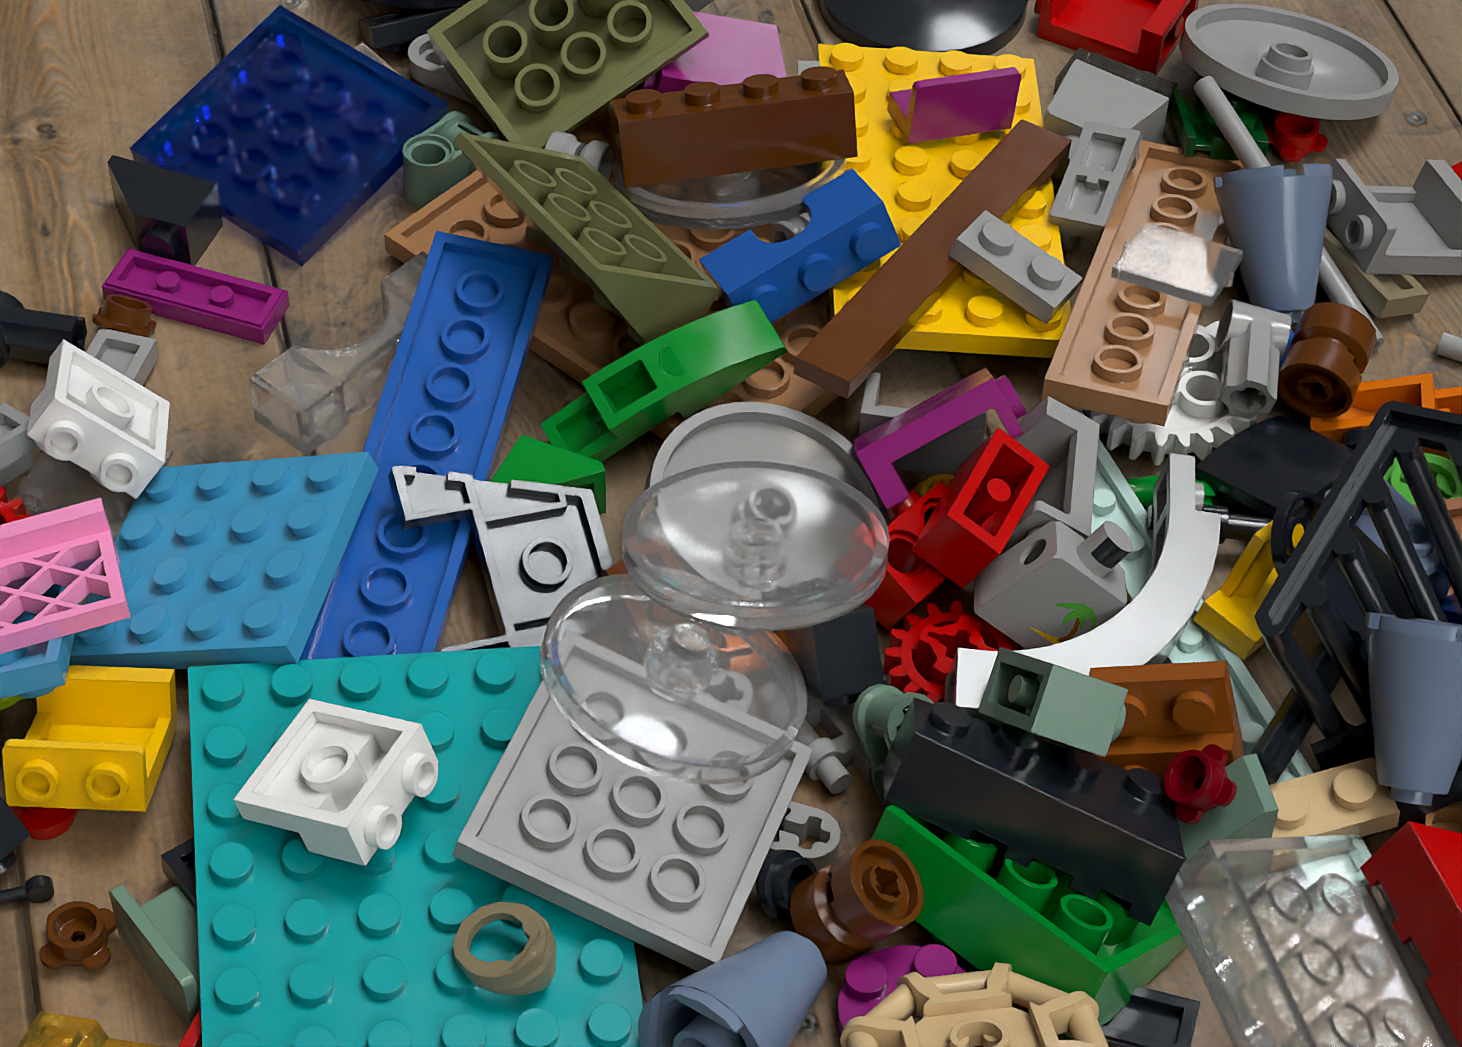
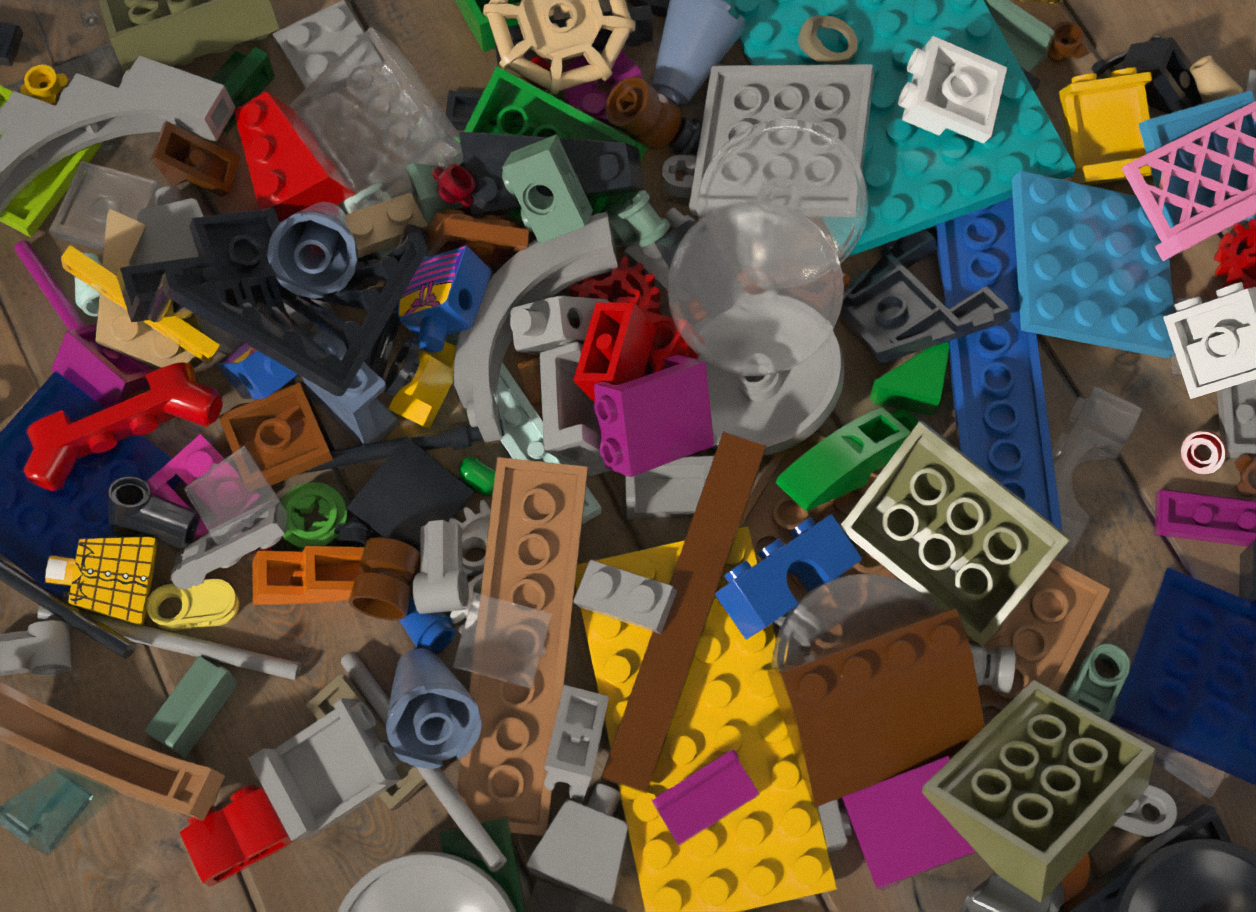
camera: 170 degrees right, 20 degrees up
(184, 352) = (1194, 460): none -> plate
(1219, 624) = (443, 296): none -> blue torso

